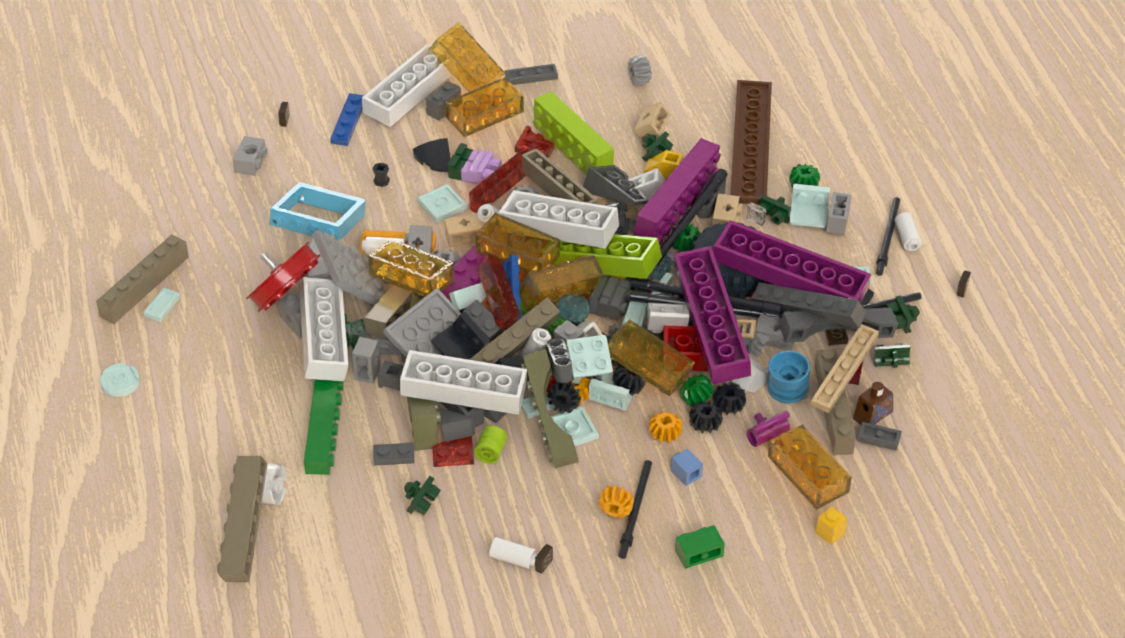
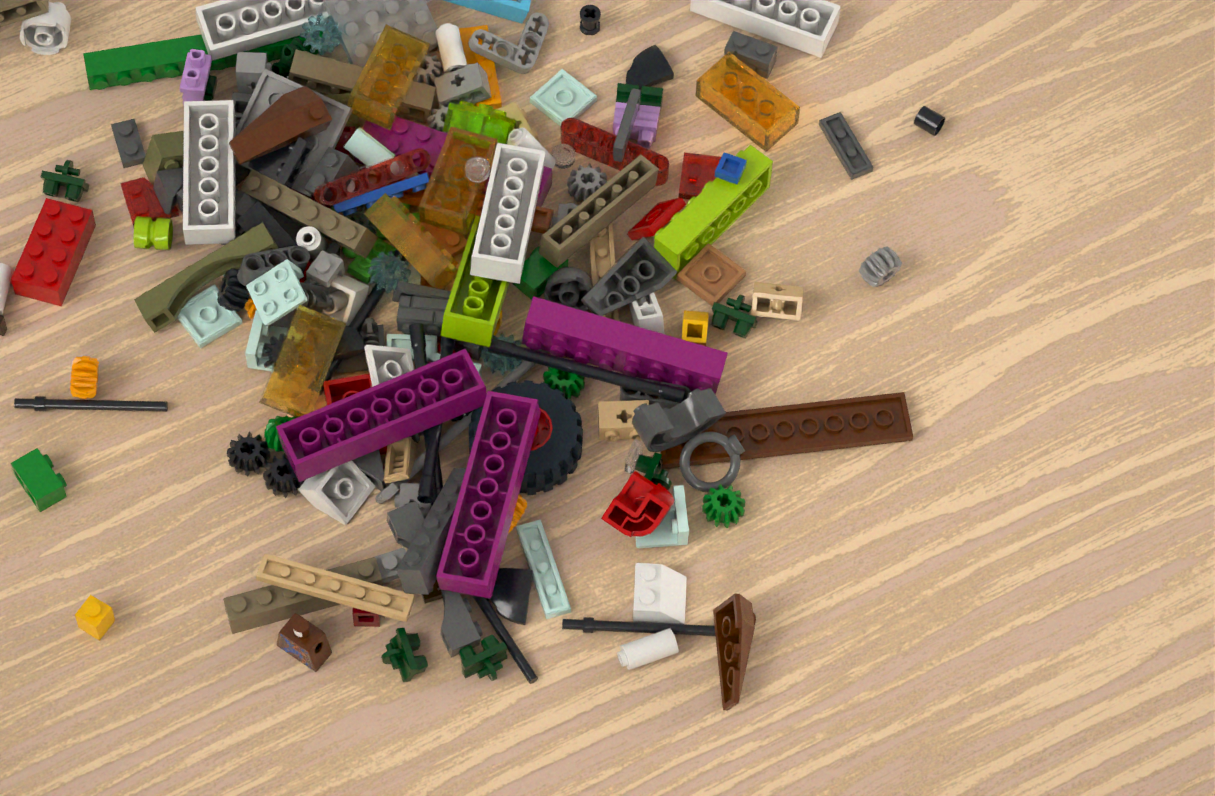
camera: 75 degrees right, 15 degrees up
(358, 298) = (330, 35): none -> clear light blue gear
(364, 391) = (196, 78): none -> lavender hips
(394, 216) = (514, 52): none -> light grey beam
(442, 319) = (290, 117): none -> reddish brown wedge
(463, 236) = (479, 120): none -> clear neon green brick
(466, 58) = (816, 56): clear yellow brick -> none
(488, 509) = (53, 252): none -> red brick
(491, 160) = (626, 125): none -> dark grey tile
(521, 223) = (477, 169): none -> clear tile
(527, 31) = (929, 120): none -> black beam
(555, 106) = (730, 168): none -> blue plate
(572, 161) = (656, 218): none -> red tile
(625, 151) = (711, 275): none -> medium nougat plate
(665, 426) = (232, 413): light orange gear -> none
(686, 467) = (161, 445): medium blue brick -> none
(747, 177) = (670, 427): none -> dark grey brick
(765, 159) = (732, 447): none -> dark grey piece
(768, 428) = (240, 526): magenta pin -> none
(788, 377) = (321, 521): dark azure wheel -> none
(805, 208) = (638, 507): none -> red brick
(809, 466) = (181, 578): clear yellow brick -> none
(818, 342) = (388, 564): none -> light grey bracket
(838, 213) = (654, 550): light grey brick -> none
(866, 224) = (659, 594): none -> white slope
(879, 436) = (259, 657): dark grey plate -> none
(916, 186) = (734, 634): none -> reddish brown wedge
(963, 283) = (562, 730): dark brown tile -> none

